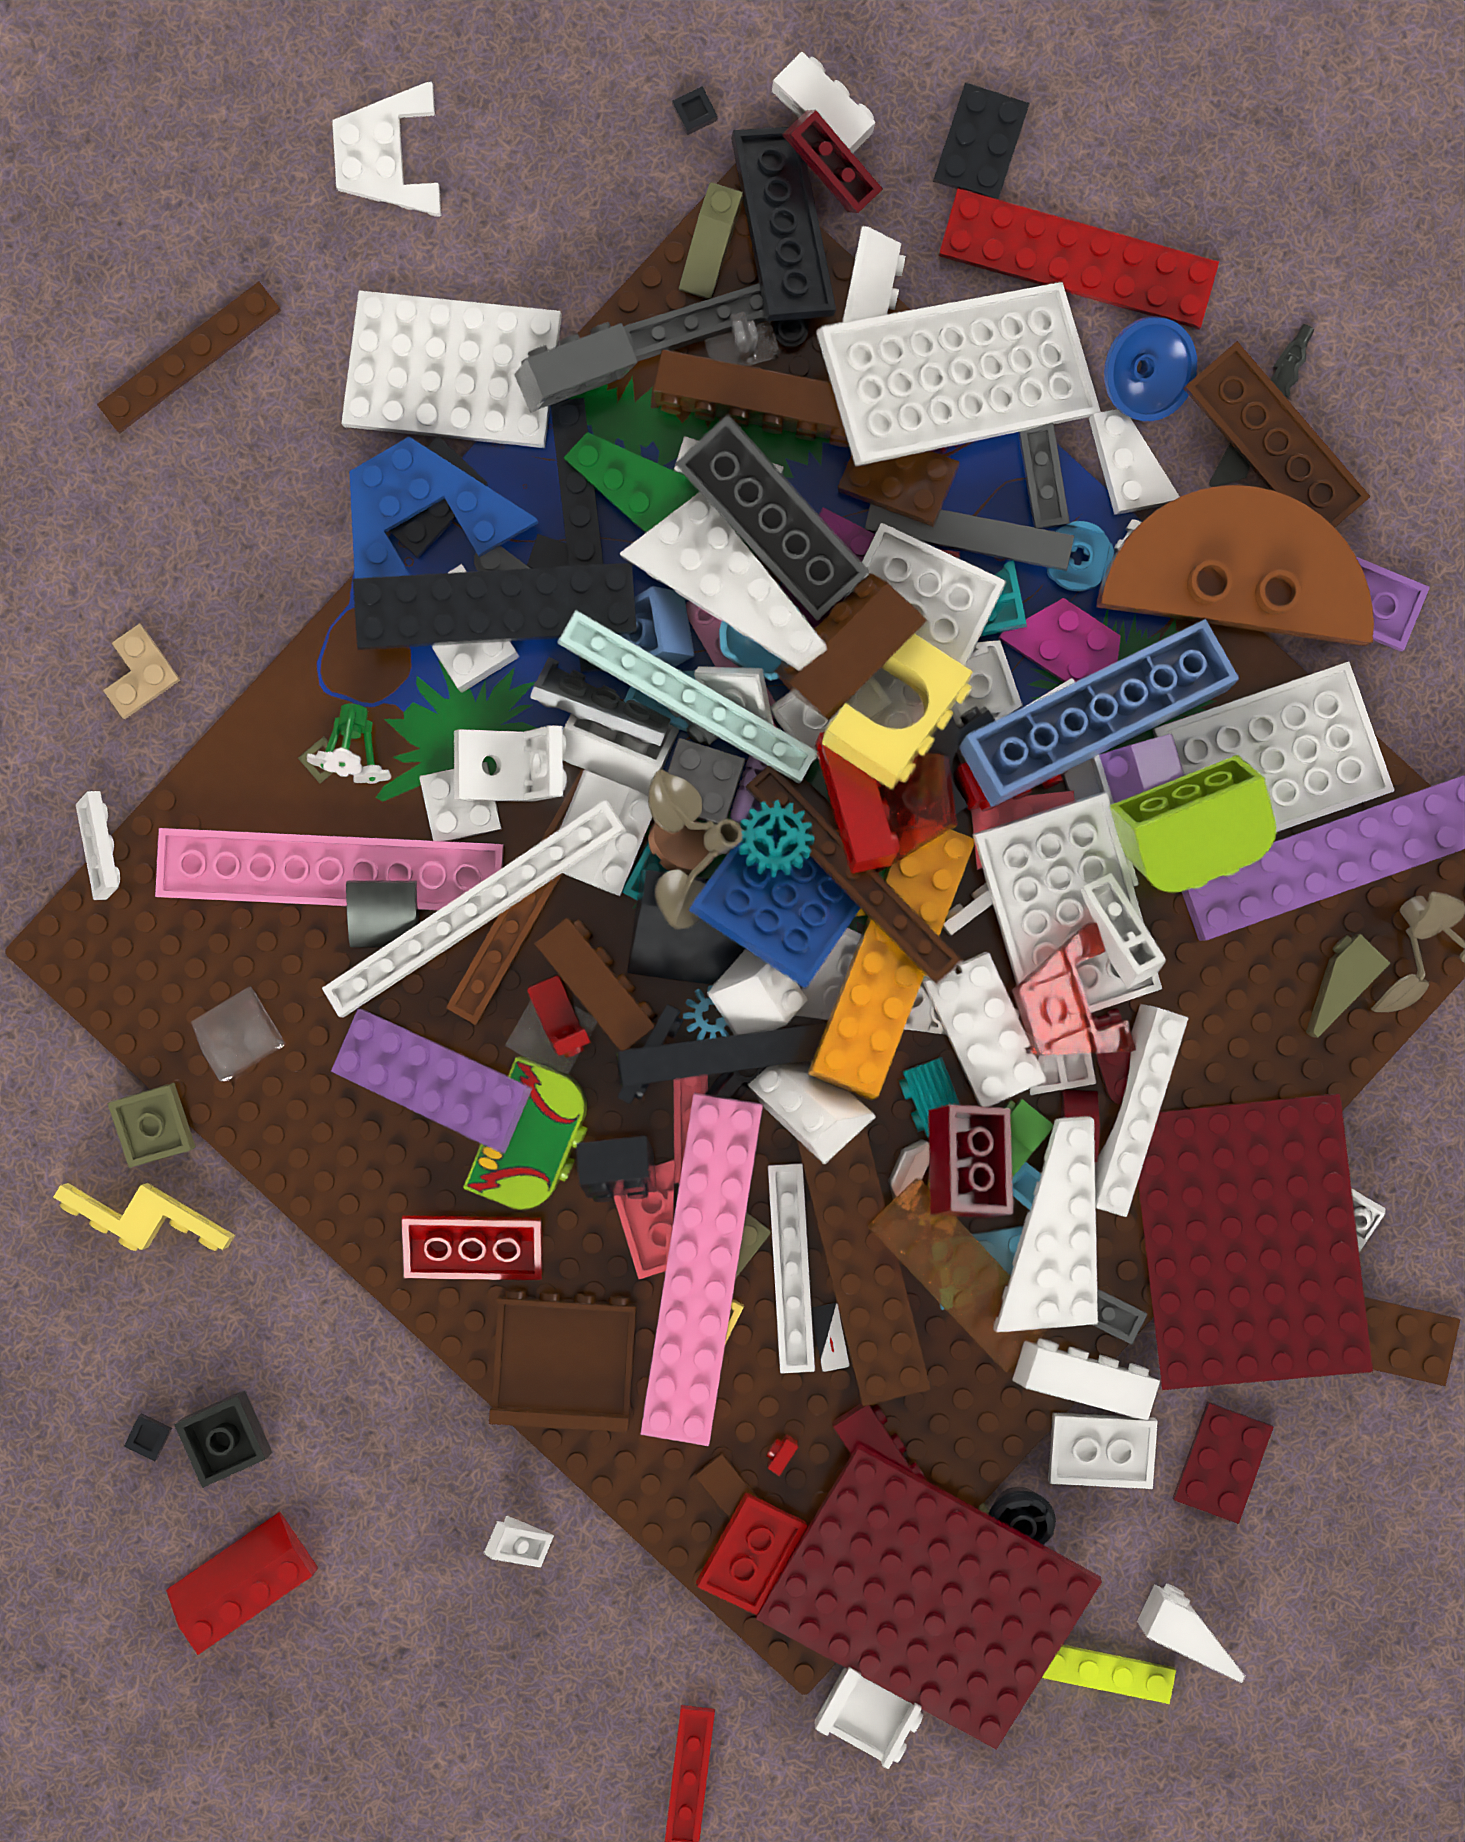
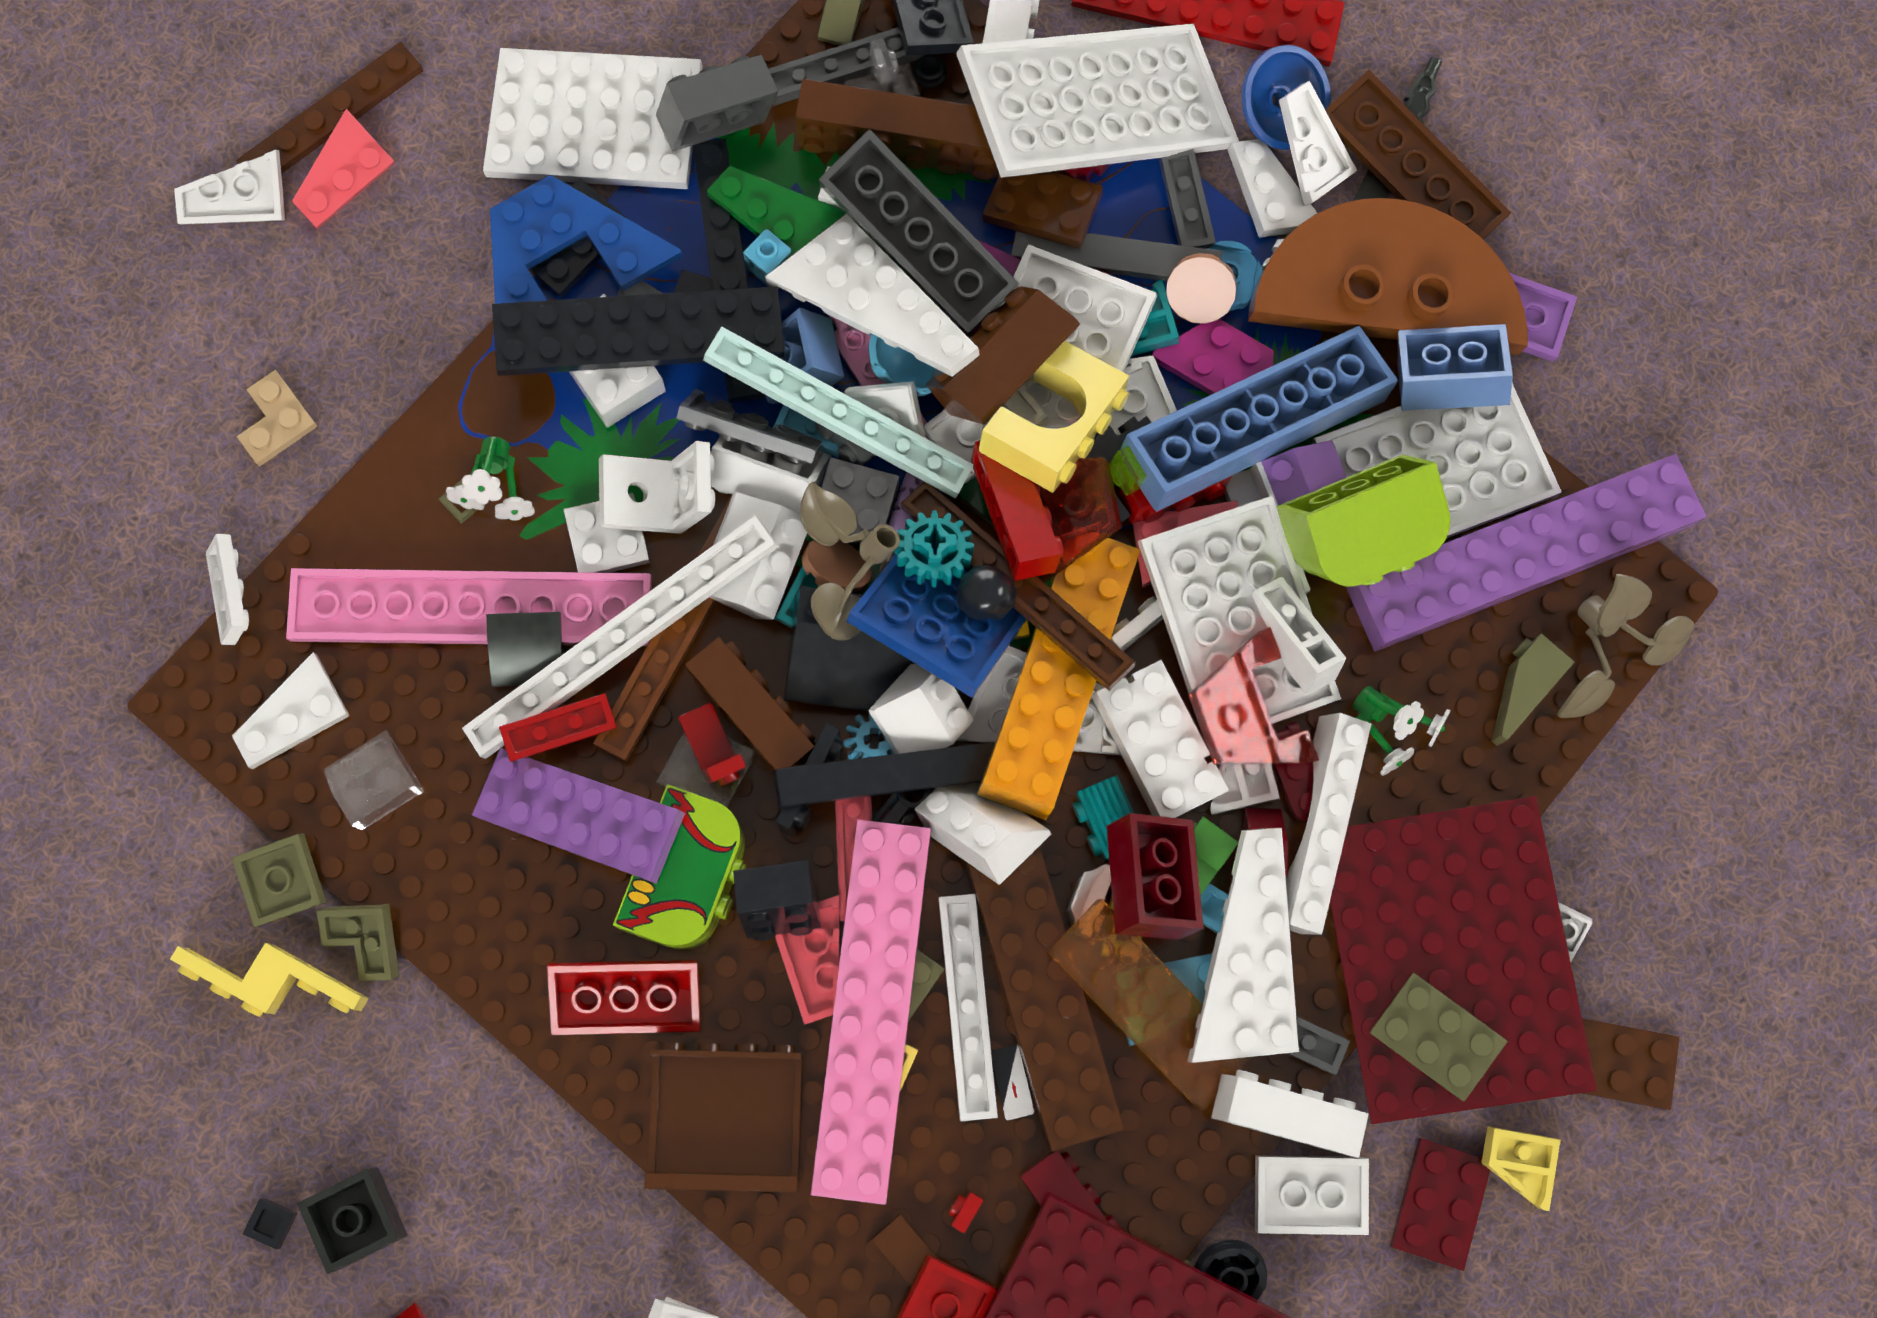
camera: 15 degrees left, 10 degrees down
(97, 443) = (239, 194): none -> white wing
(161, 967) = (291, 714): none -> white wing
(201, 418) = (341, 171): none -> coral wing
(236, 1177) = (369, 931): none -> olive plate
(412, 994) = (557, 727): none -> red plate
(622, 526) = (765, 255): none -> medium azure bracket
(823, 885) = (986, 593): none -> black hair
(965, 767) = (1127, 471): none -> clear neon green plate
(1051, 574) = (1201, 288): none -> tile
(1176, 420) = (1314, 144): none -> white wing
(1194, 997) = (1376, 705): none -> plant
(1228, 1316) = (1438, 1037): none -> olive plate
(1296, 665) = (1454, 367): none -> medium blue brick
(1302, 1428) = (1523, 1162): none -> light yellow wing

